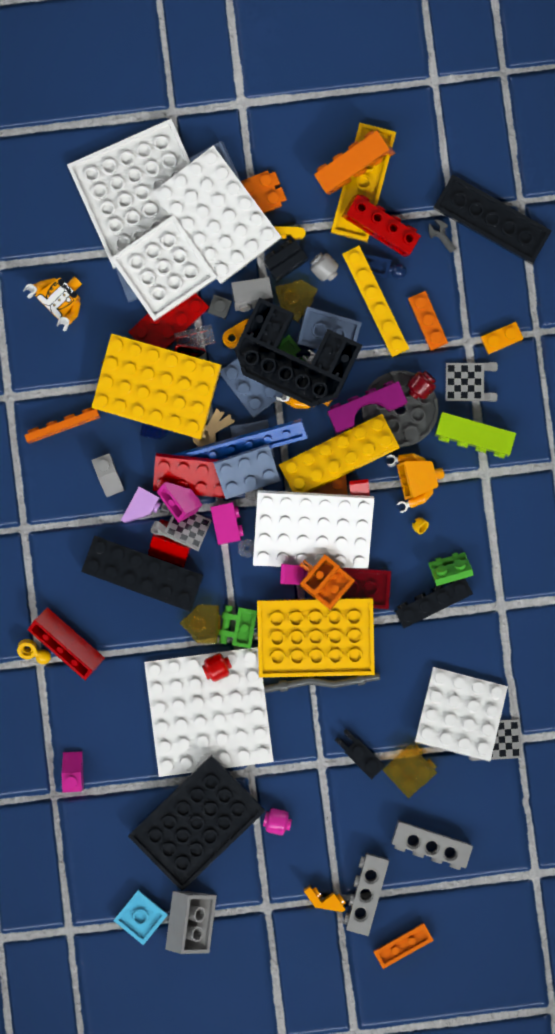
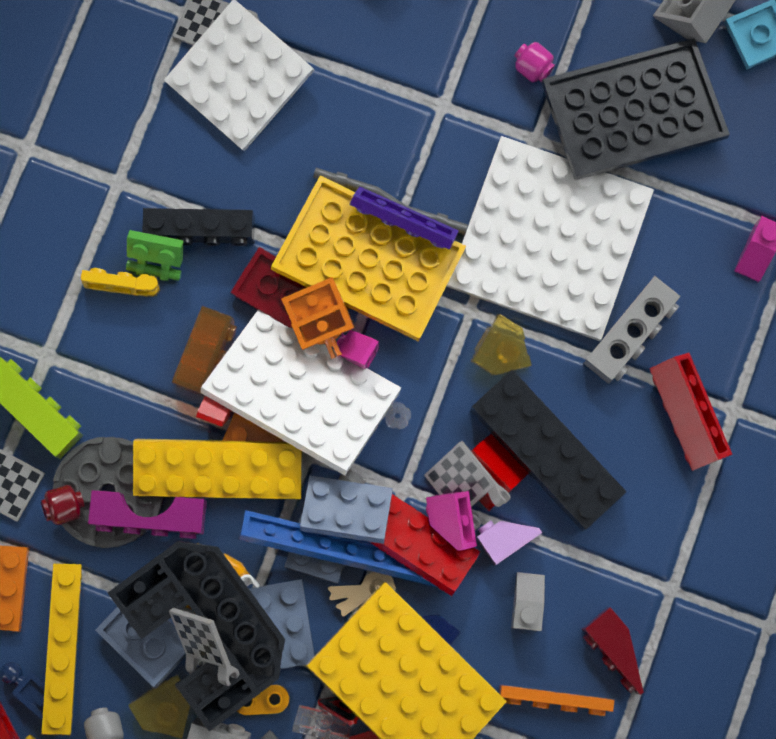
camera: 160 degrees left, 5 degrees down
(42, 656) = (742, 430): yellow plate -> none
(44, 478) = (614, 641): none -> dark red slope
(126, 708) = (654, 294): none -> light grey brick
(216, 667) = (513, 282): red head -> none
(226, 523) = (407, 459): dark pink brick -> none
(244, 626) = (453, 316): bright green plate -> none
(290, 345) = (202, 644): none -> light grey flag
(306, 673) = (403, 217): none -> dark purple plate
(361, 755) = (388, 89): black hinge -> none
(387, 525) = (204, 349): none -> clear orange brick
(410, 770) = (337, 41): clear yellow plate -> none
(416, 478) = (135, 389): light orange torso -> none
(420, 525) = (163, 330): yellow hinge -> none
(462, 542) = (121, 283): none -> yellow hinge

